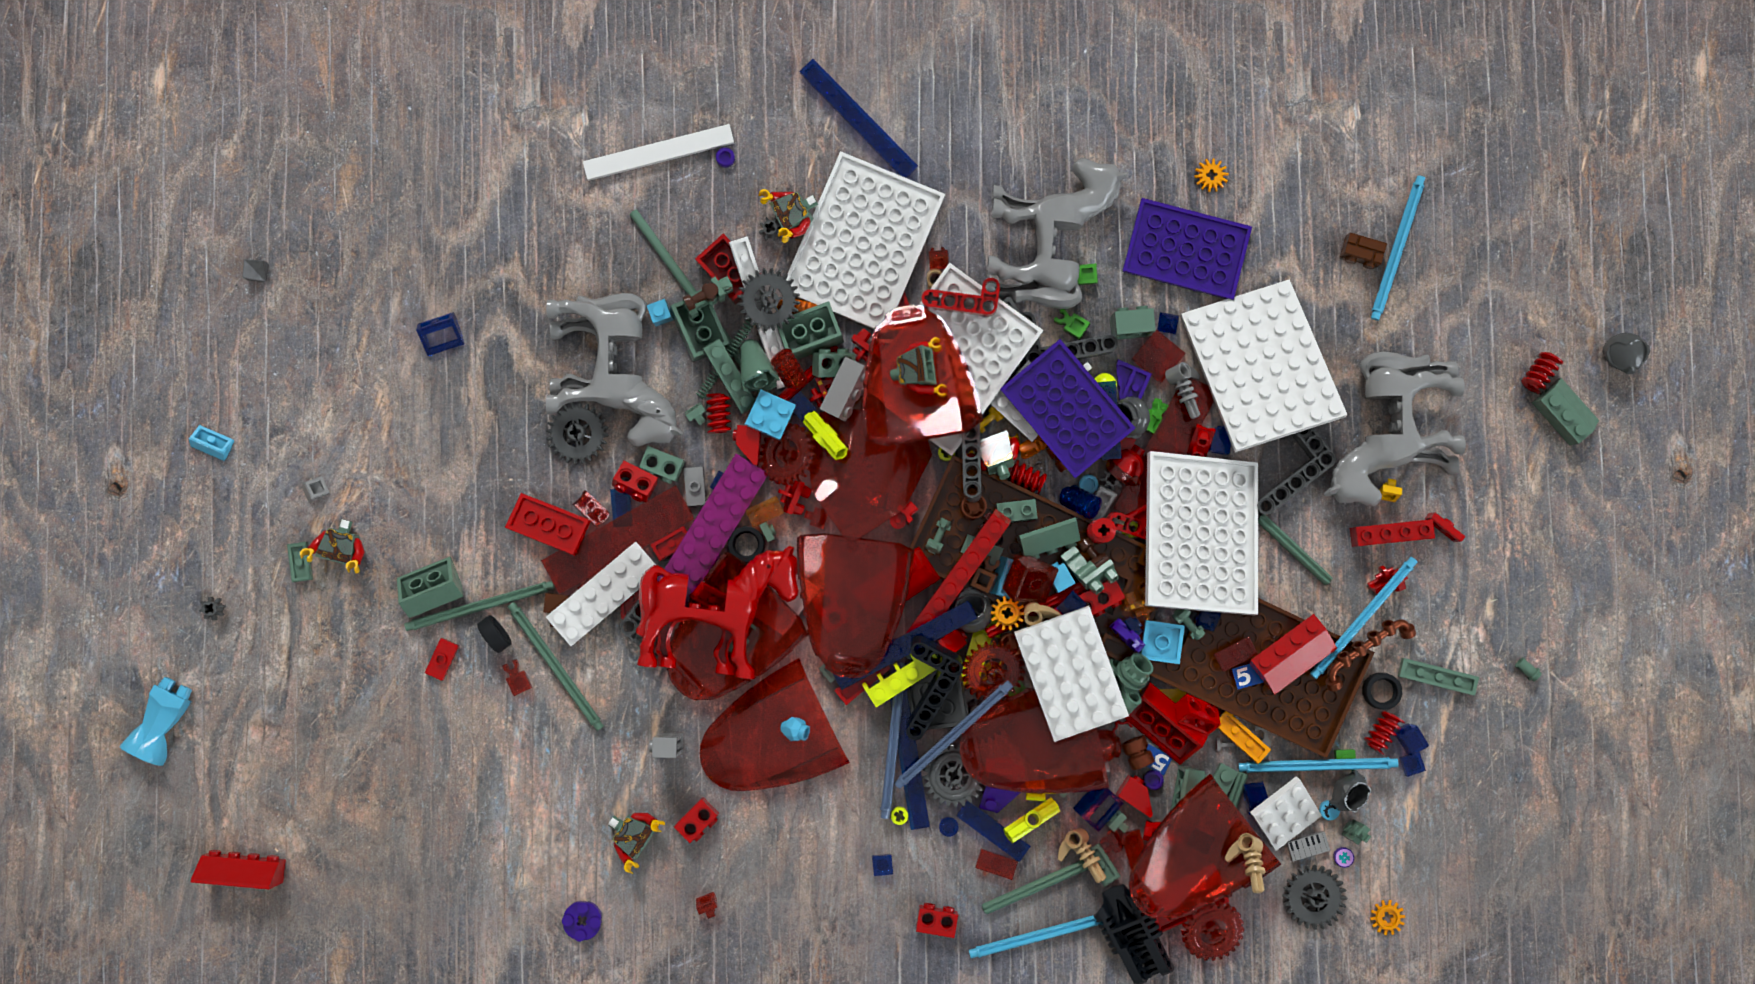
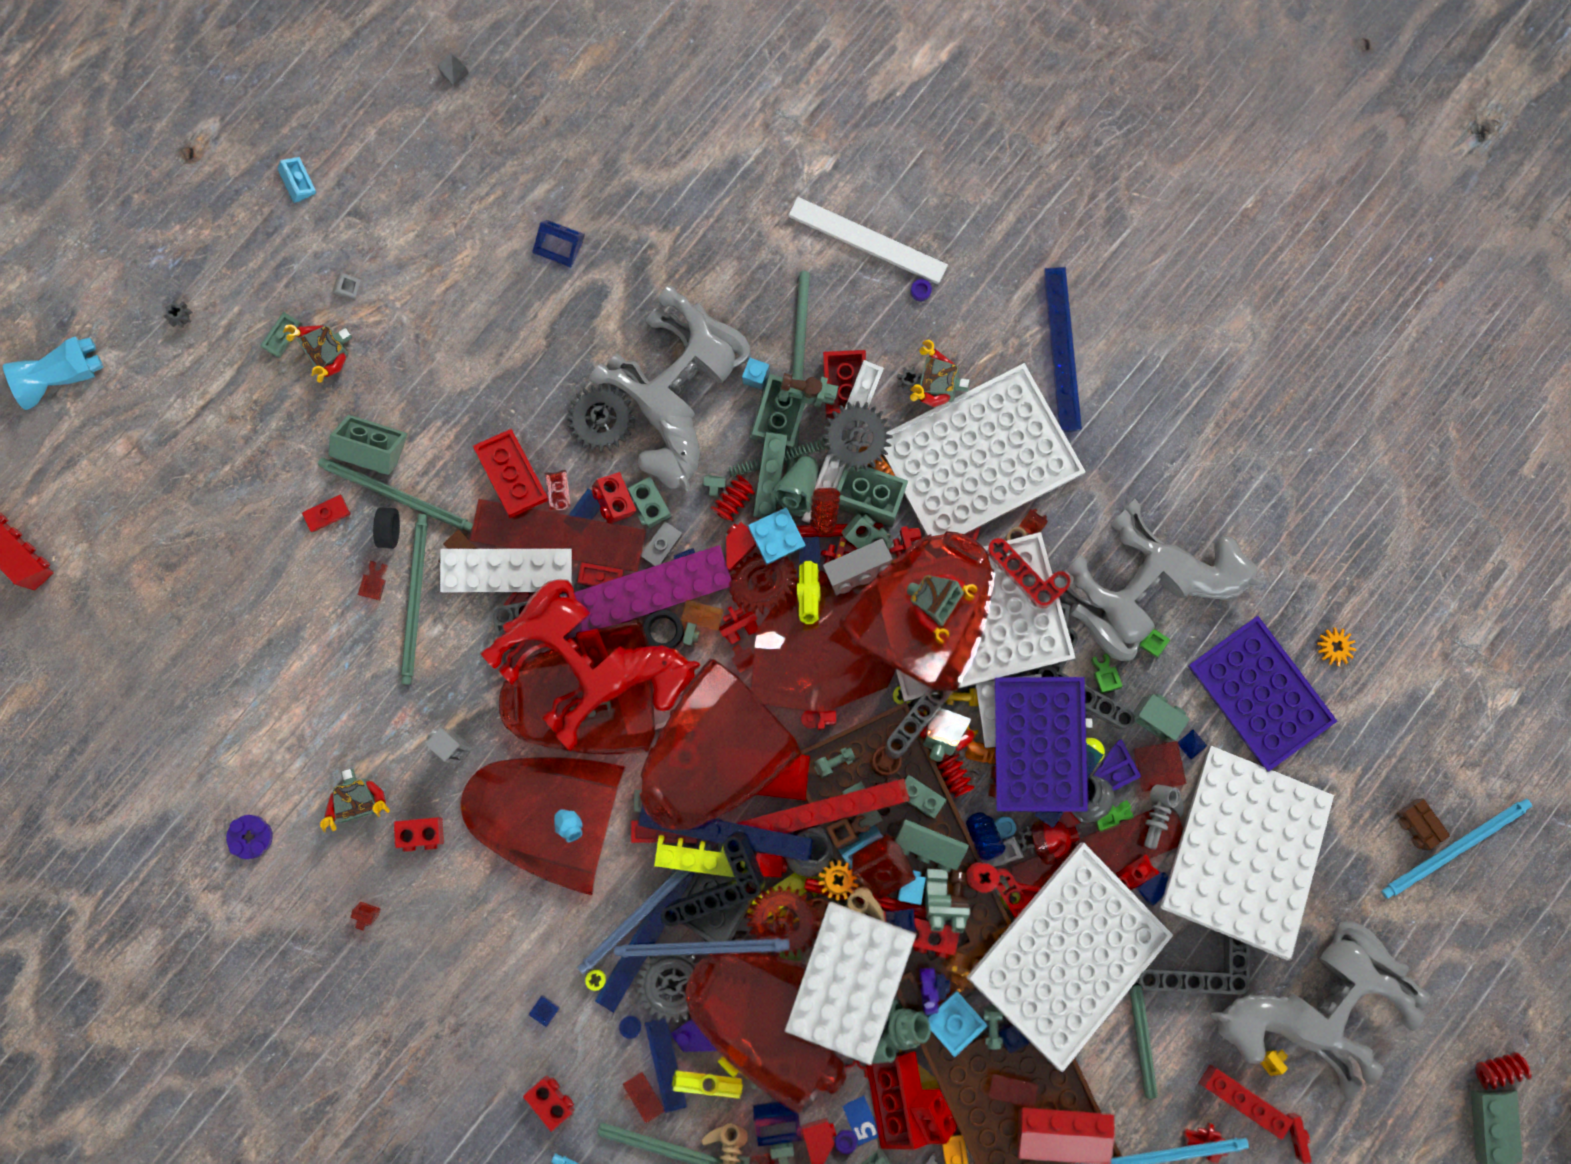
camera: 40 degrees right, 5 degrees down
(1137, 751) = (852, 1105): copper wheel -> none
(1245, 676) = (1005, 1119): blue sticker -> none

